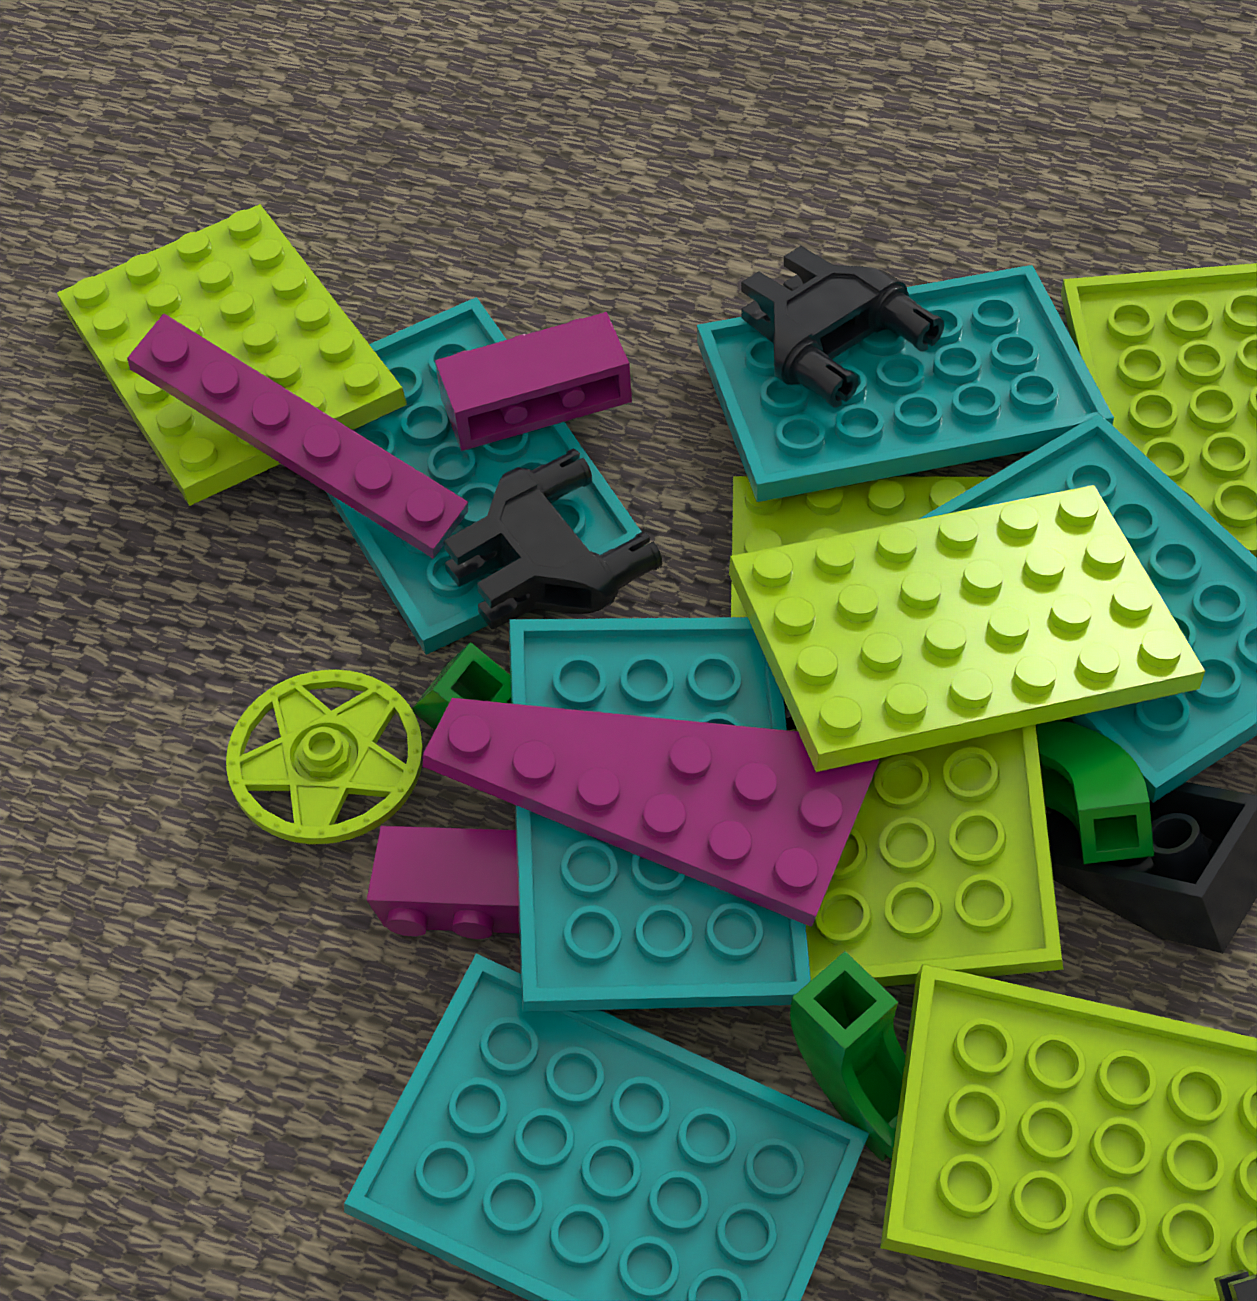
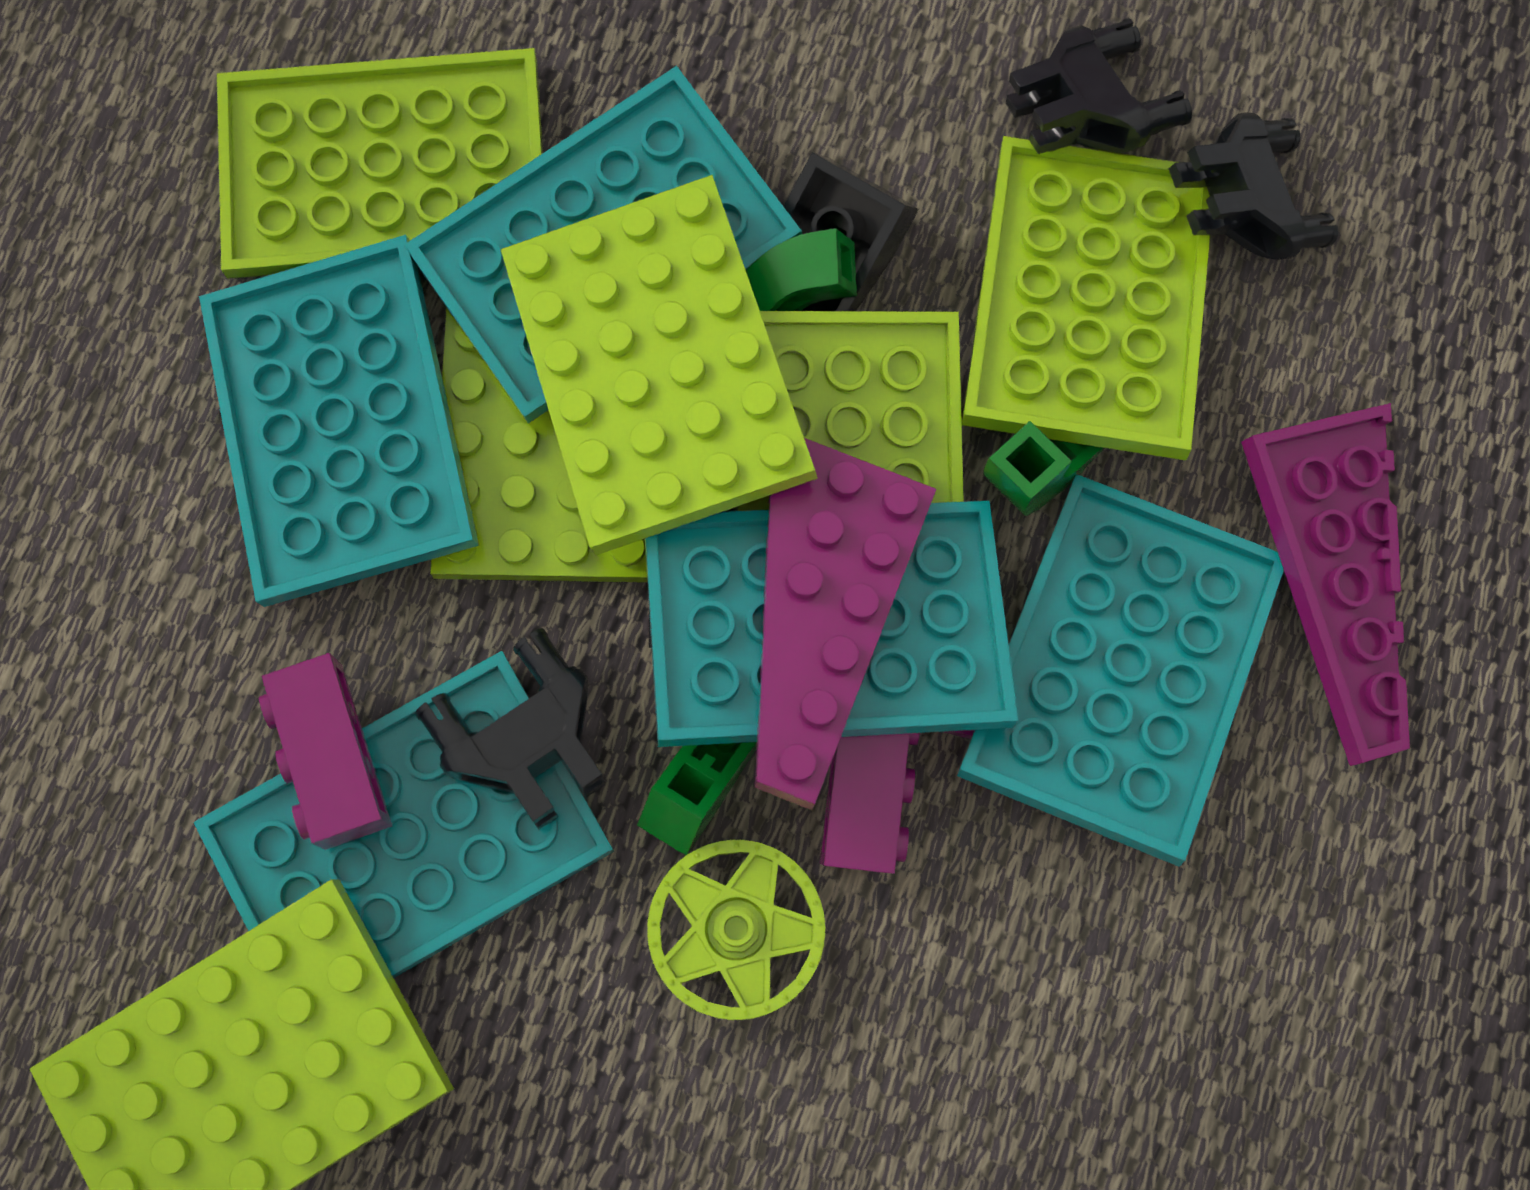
camera: 95 degrees left, 20 degrees up
(298, 435) = (390, 983): magenta plate -> none
(827, 313) = (268, 468): black connector -> none

